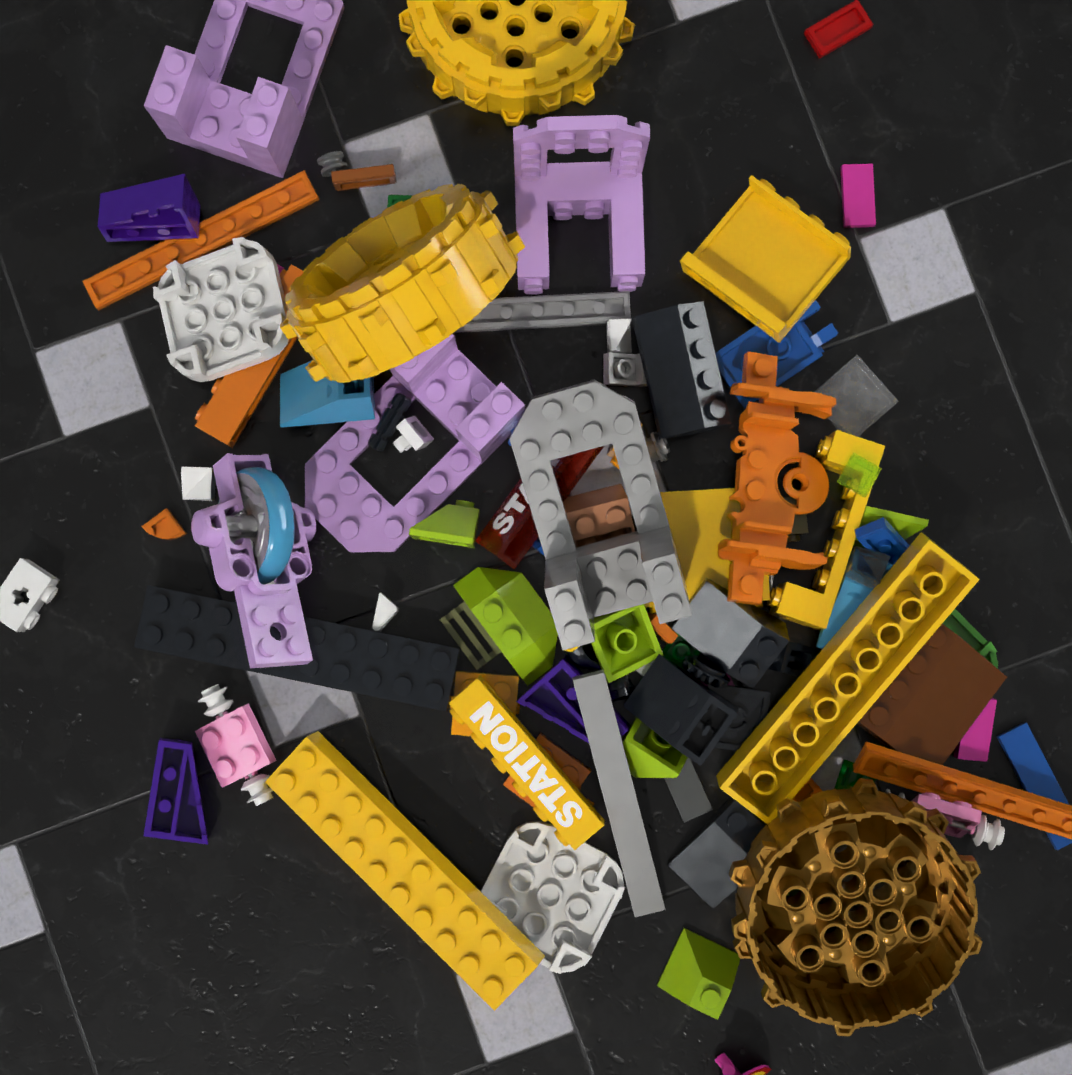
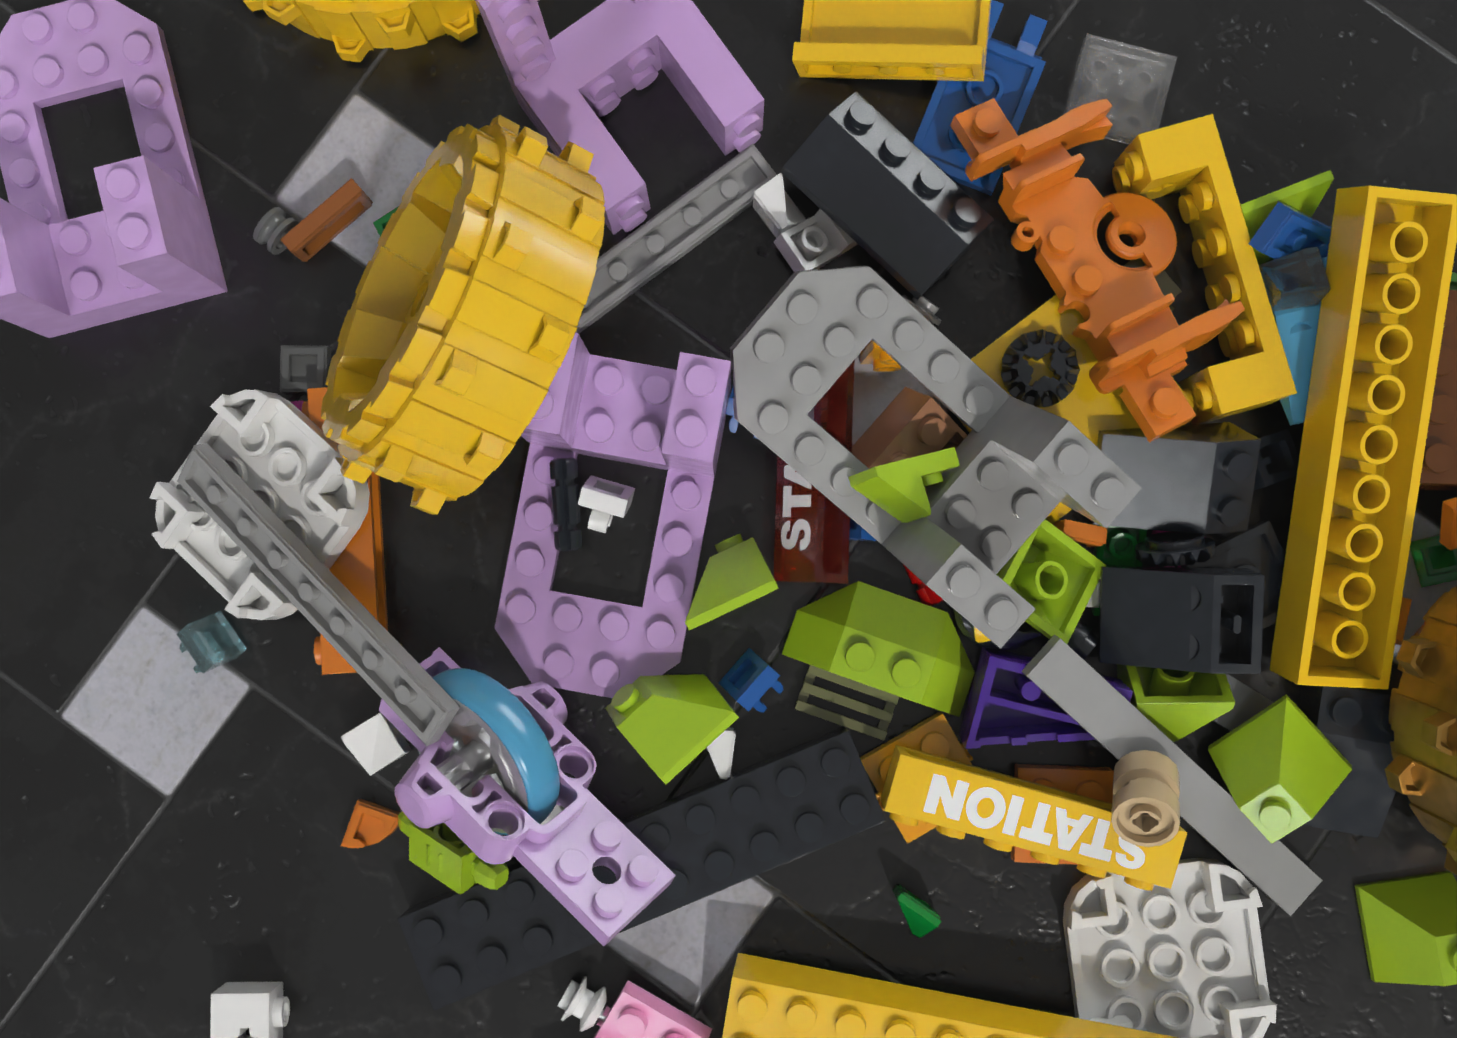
camera: 30 degrees left, 0 degrees up
(145, 367) = (210, 642): none -> clear light blue tile
(150, 211) = (84, 440): dark purple wedge -> none
(197, 569) = (449, 858): none -> lime piece
(214, 235) = (178, 427): orange tile -> none
(222, 379) = (318, 595): none -> light grey tile
(296, 250) = (303, 368): none -> dark grey tile
(323, 401) = (465, 532): dark azure slope -> none
(366, 576) = (670, 719): none -> lime slope
(424, 587) = (750, 680): none -> blue tile
(430, 775) = (918, 914): none -> green slope
(575, 532) = (901, 484): none -> lime slope
(592, 789) = (1146, 798): none -> tan wheel
(680, 828) = (1279, 768): none -> lime slope
(692, 536) = (1017, 373): none -> black gear
(859, 475) = (1207, 171): clear neon green tile -> none

